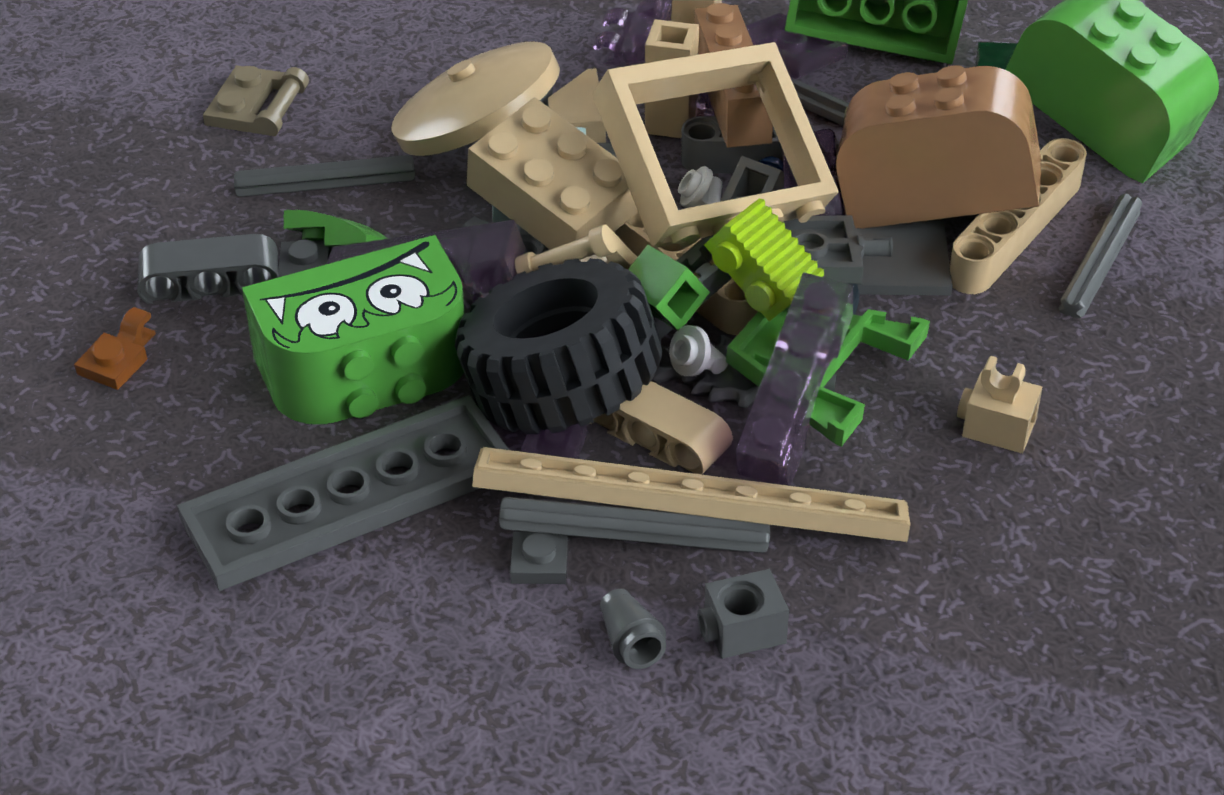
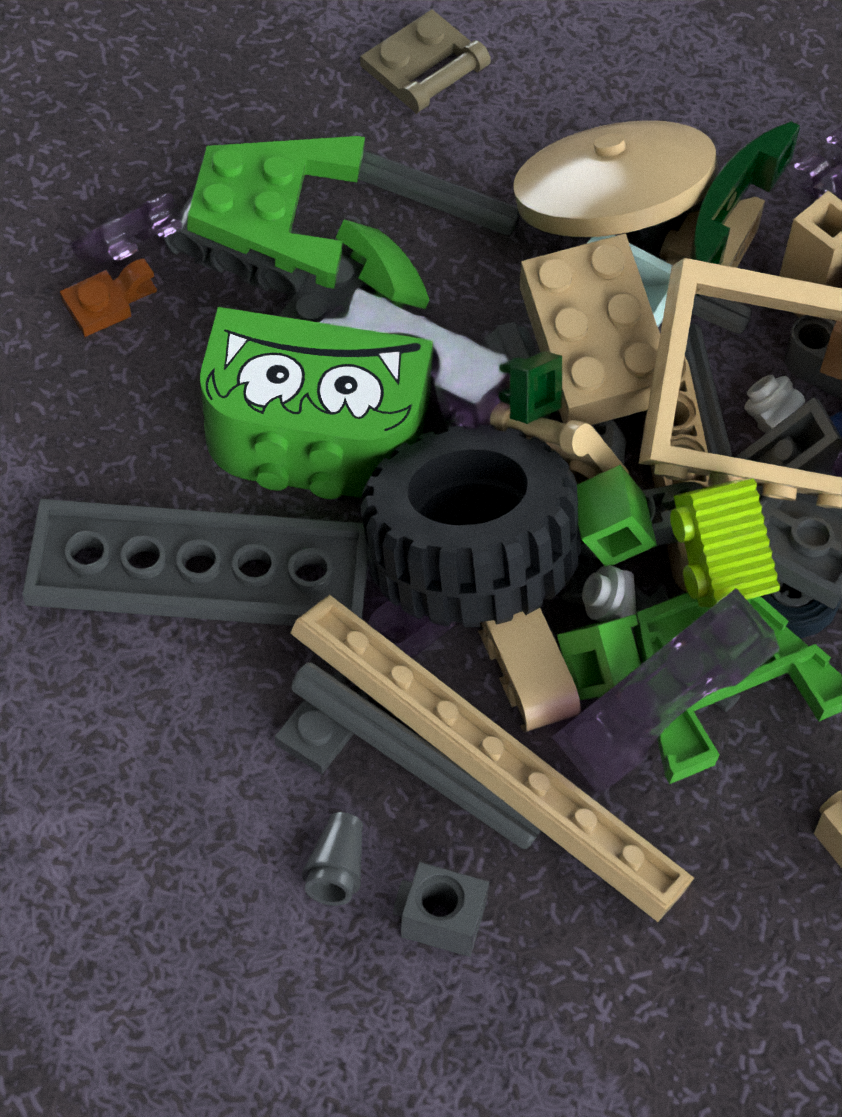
camera: 30 degrees right, 15 degrees up
(105, 295) = (112, 237): none -> clear purple plate
(202, 222) = (252, 194): none -> bright green wing
(543, 223) = (533, 387): none -> dark green tile
(575, 48) = (756, 164): none -> dark green slope
(709, 388) = (600, 655): none -> bright green brick

